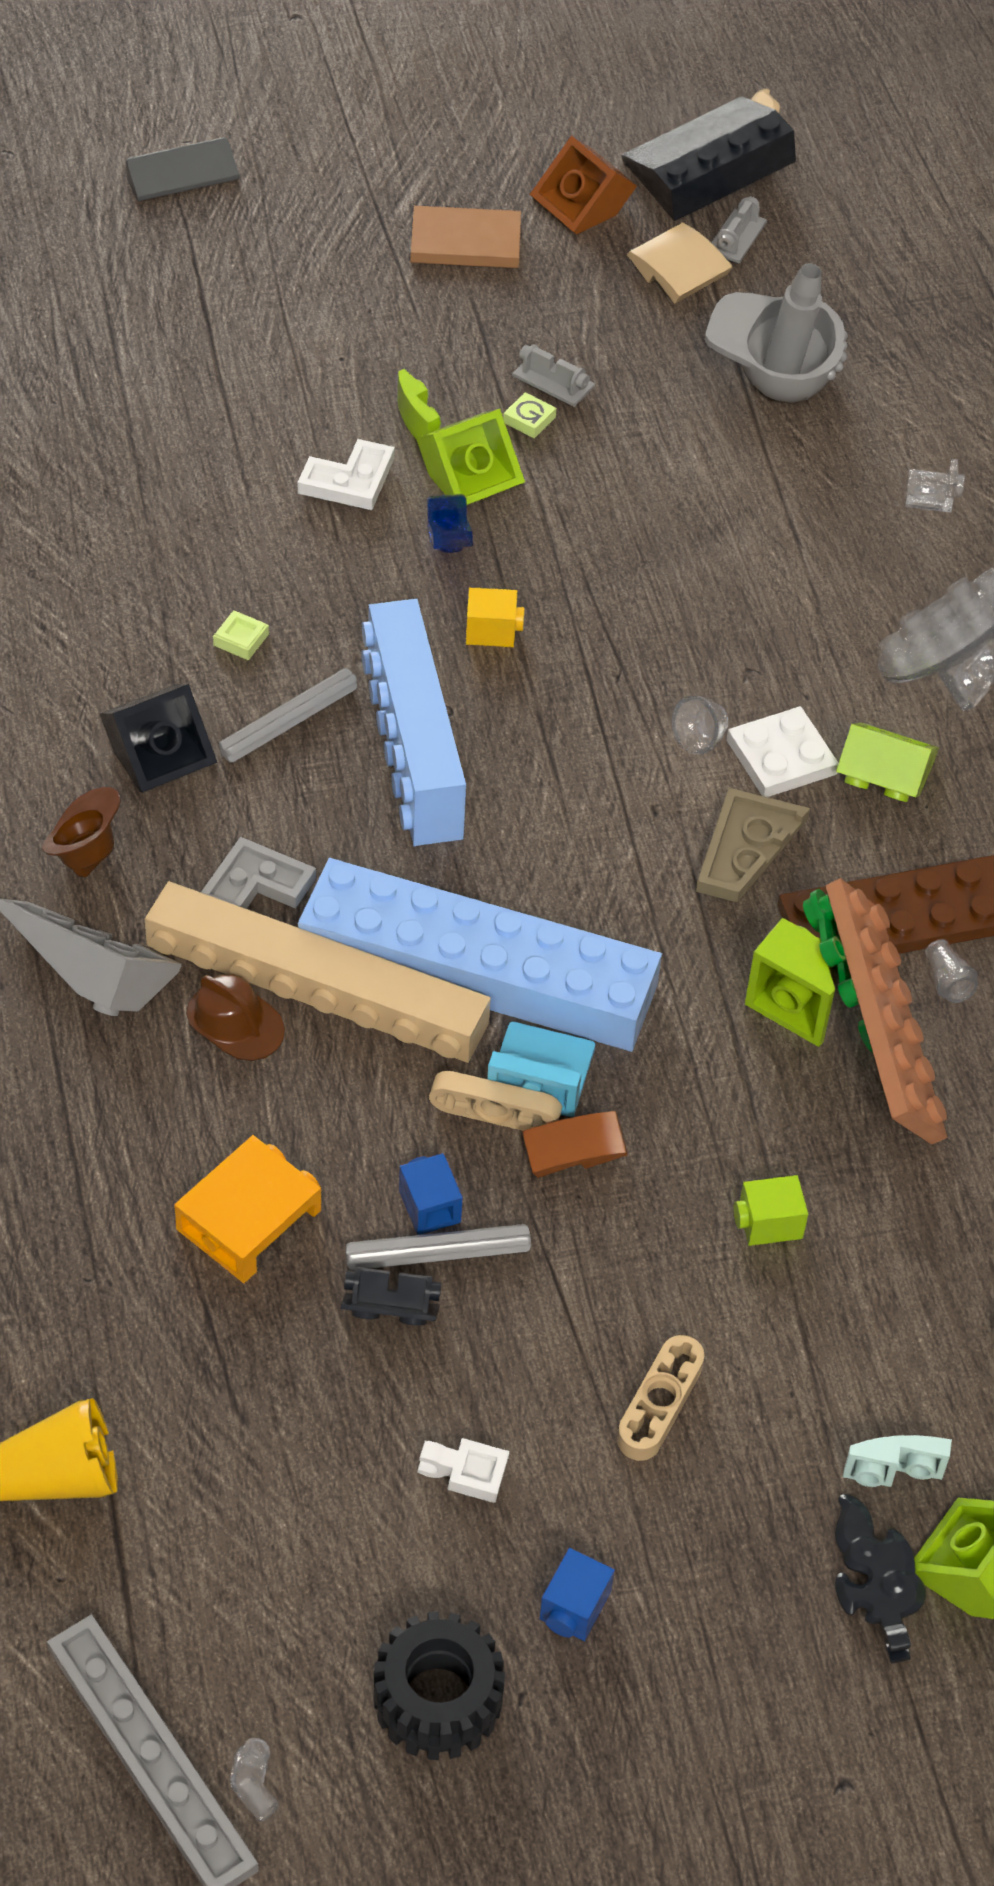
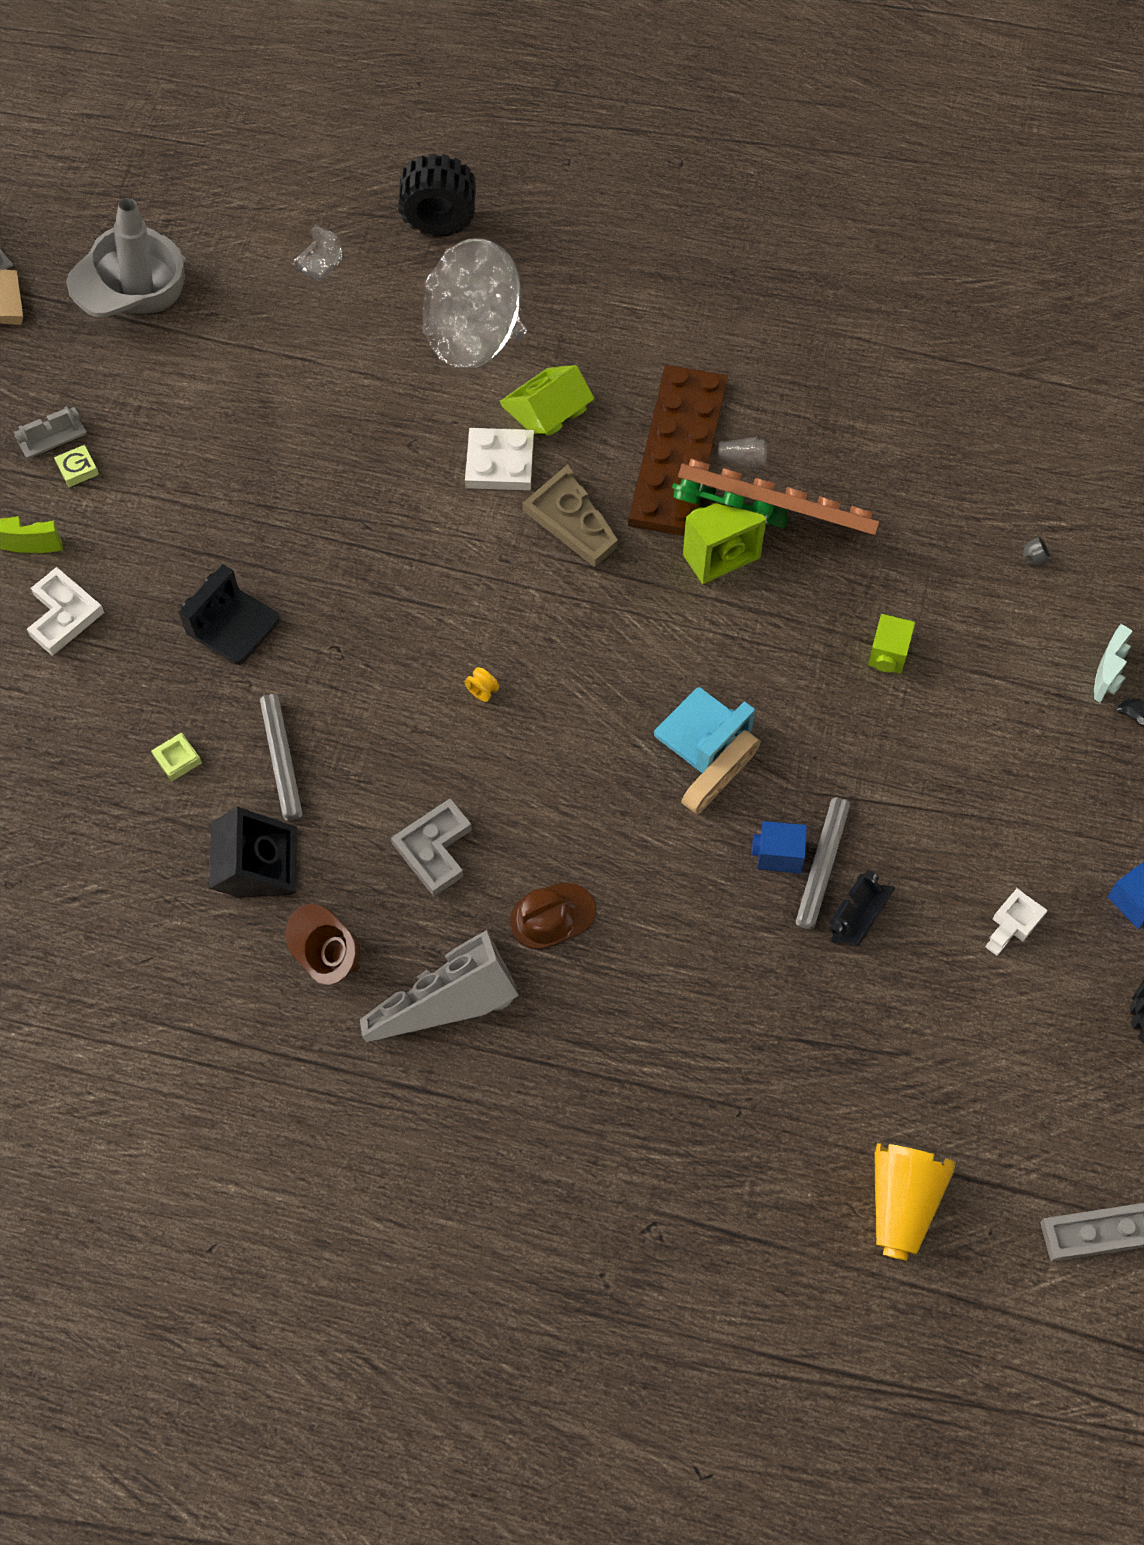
camera: 60 degrees left, 10 degrees up
(246, 1206) = (740, 972): light orange panel -> none
(318, 971) = (542, 841): tan brick -> none
(415, 723) = (353, 669): light blue brick -> none
(437, 586) = (227, 617): none -> black bracket
(448, 523) = (160, 568): clear blue bracket -> none
(472, 457) = (99, 521): lime slope -> none
(474, 844) = (481, 684): none -> yellow bush
(493, 617) = (271, 578): yellow brick -> none
(519, 960) = (585, 726): light blue brick -> none
(575, 1141) = (780, 737): dark orange slope -> none
(662, 1417) = (1003, 763): tan beam -> none
(698, 724) = (454, 495): clear piece -> none

